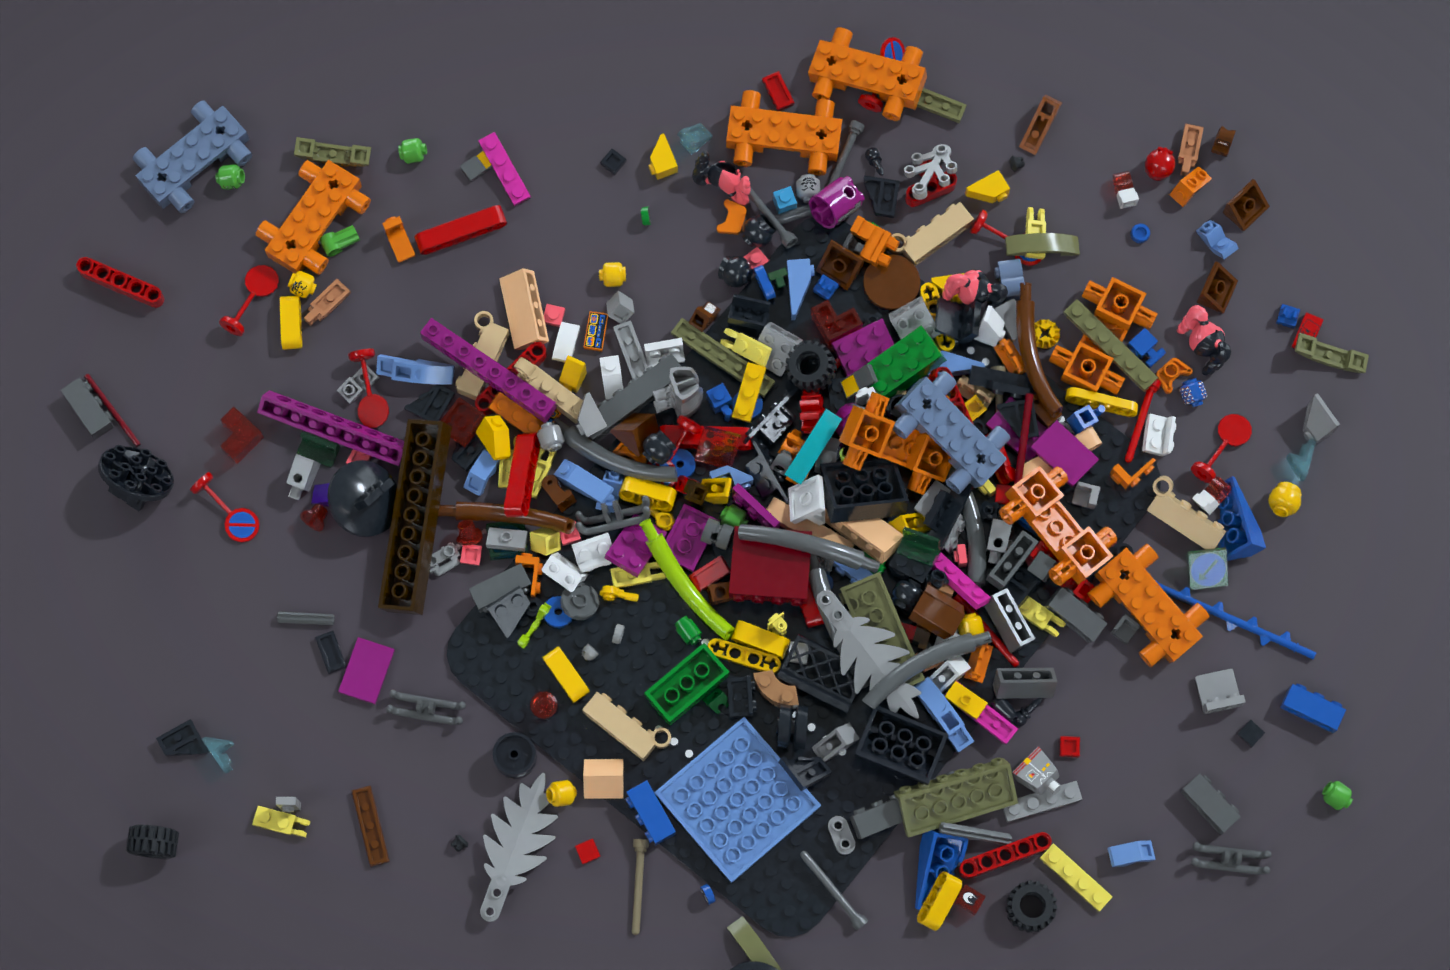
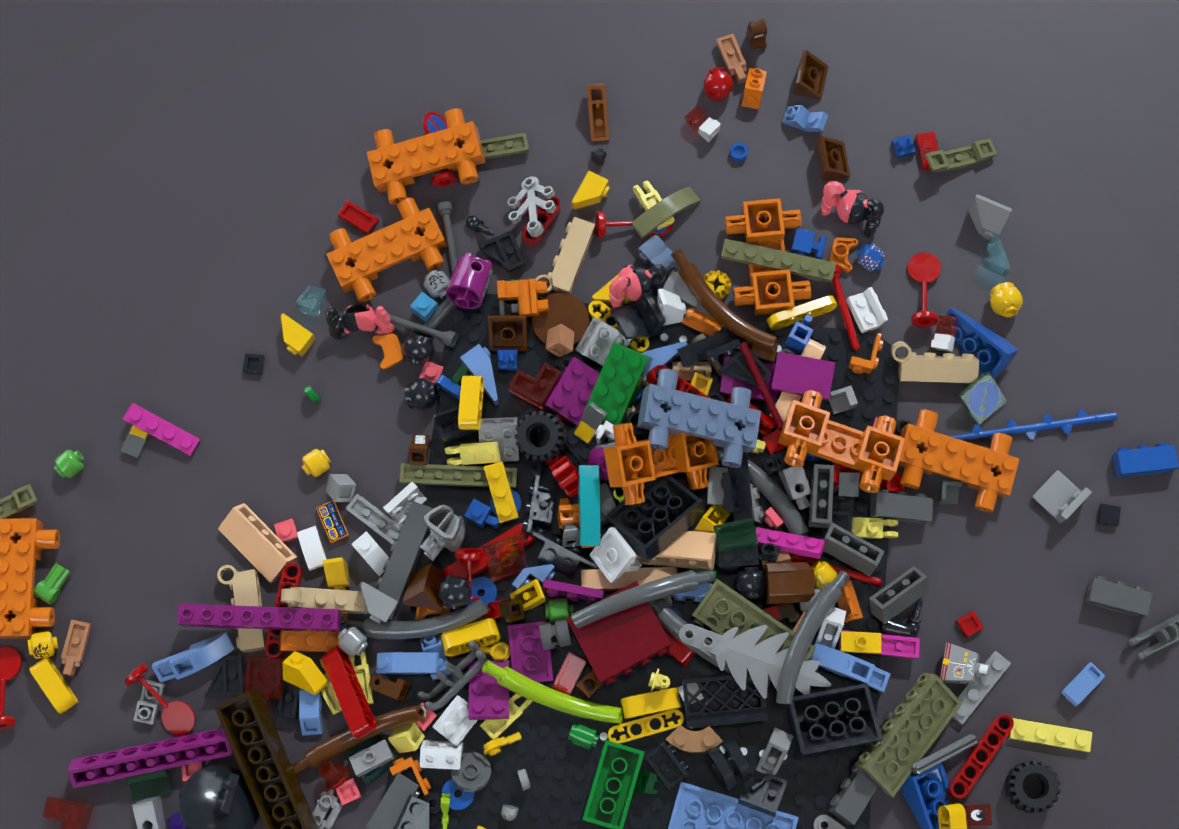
camera: 30 degrees left, 0 degrees up
(398, 239) = (105, 549): orange bracket -> none
(460, 230) = (156, 507): red beam -> none
(771, 302) = (471, 402): none -> yellow beam
(879, 298) = (560, 340): none -> nougat panel

